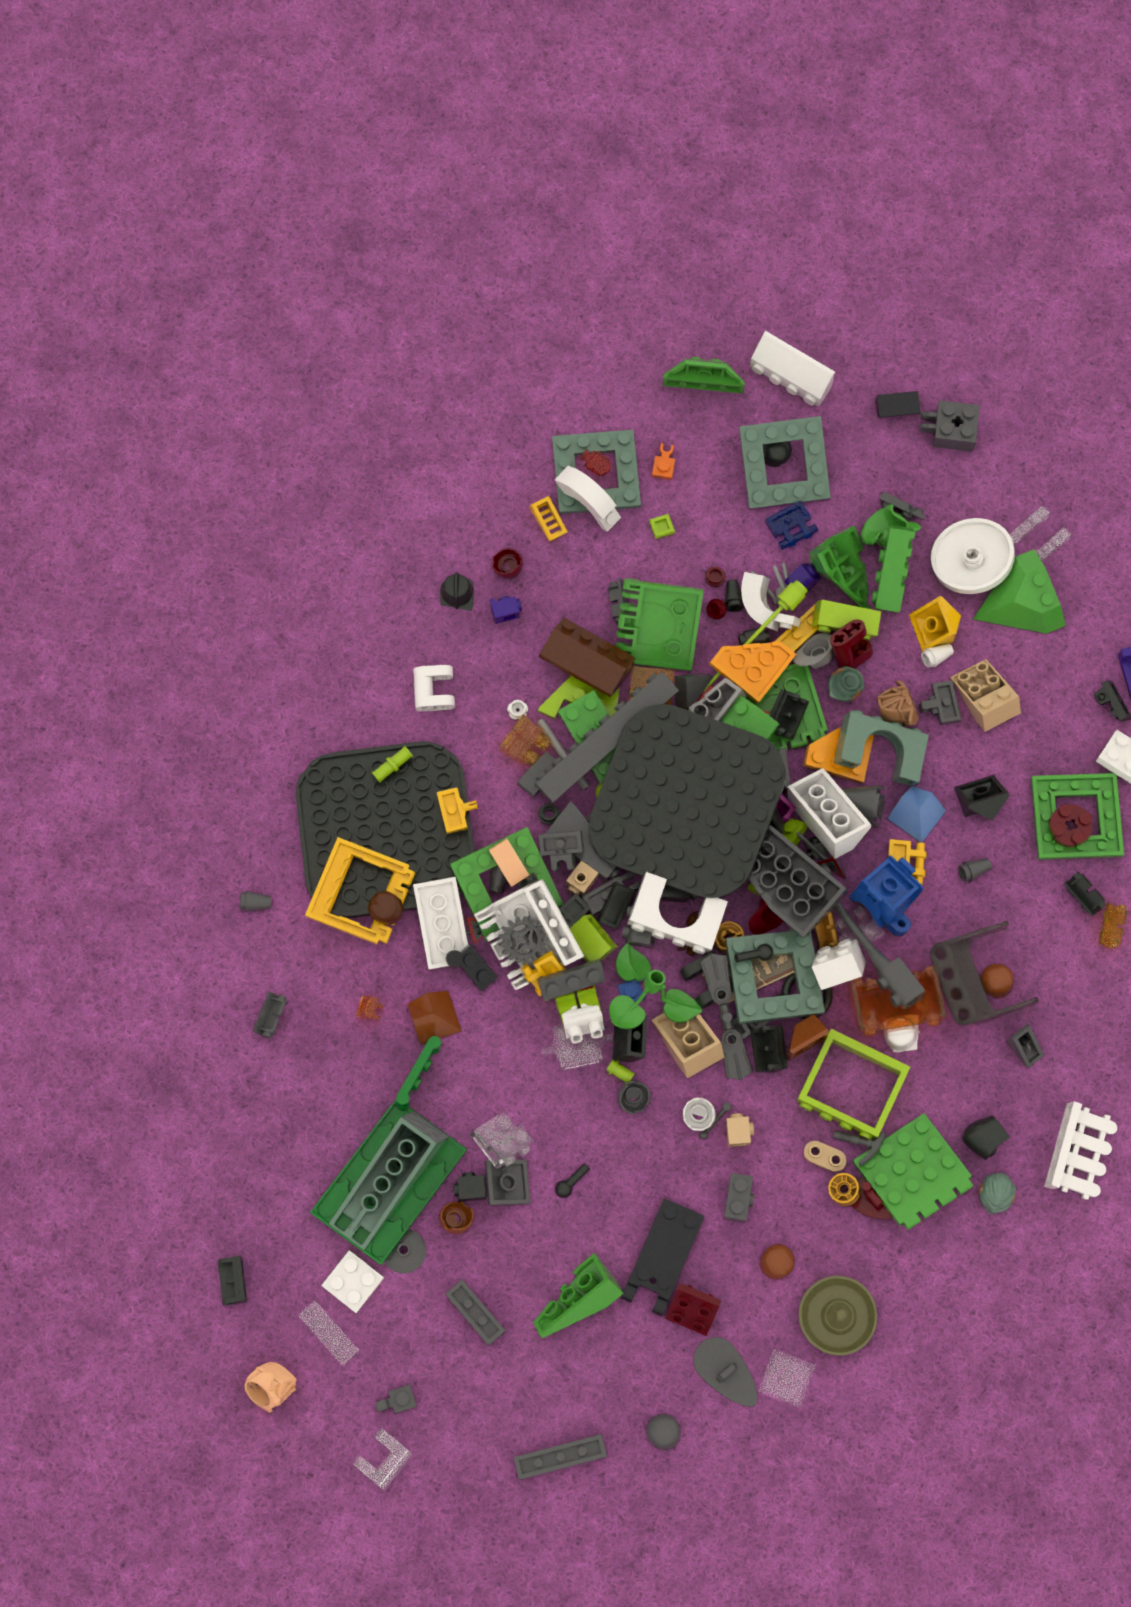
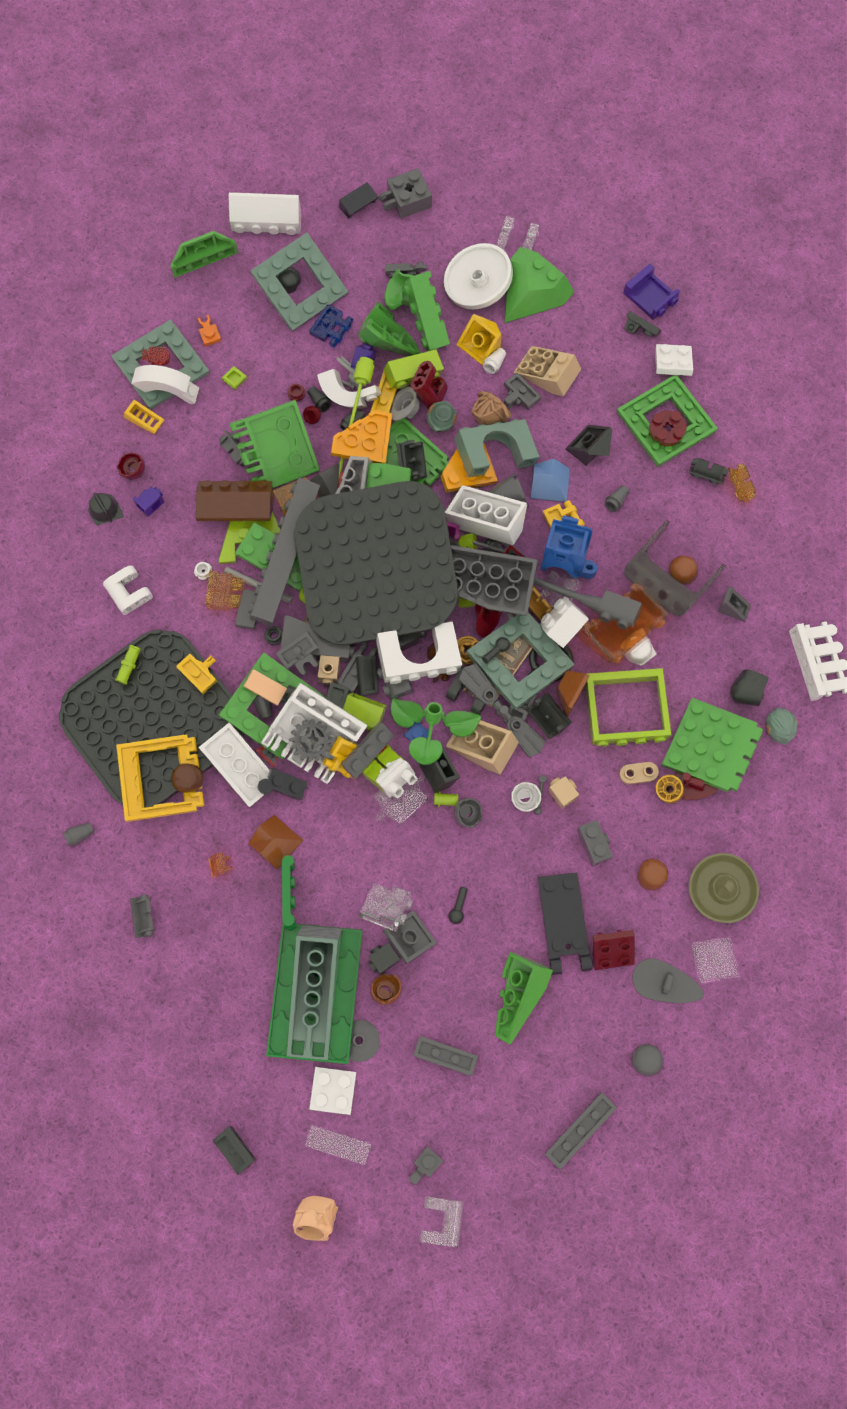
camera: 30 degrees left, 0 degrees up
(873, 1145) = (654, 747): dark grey piece -> none

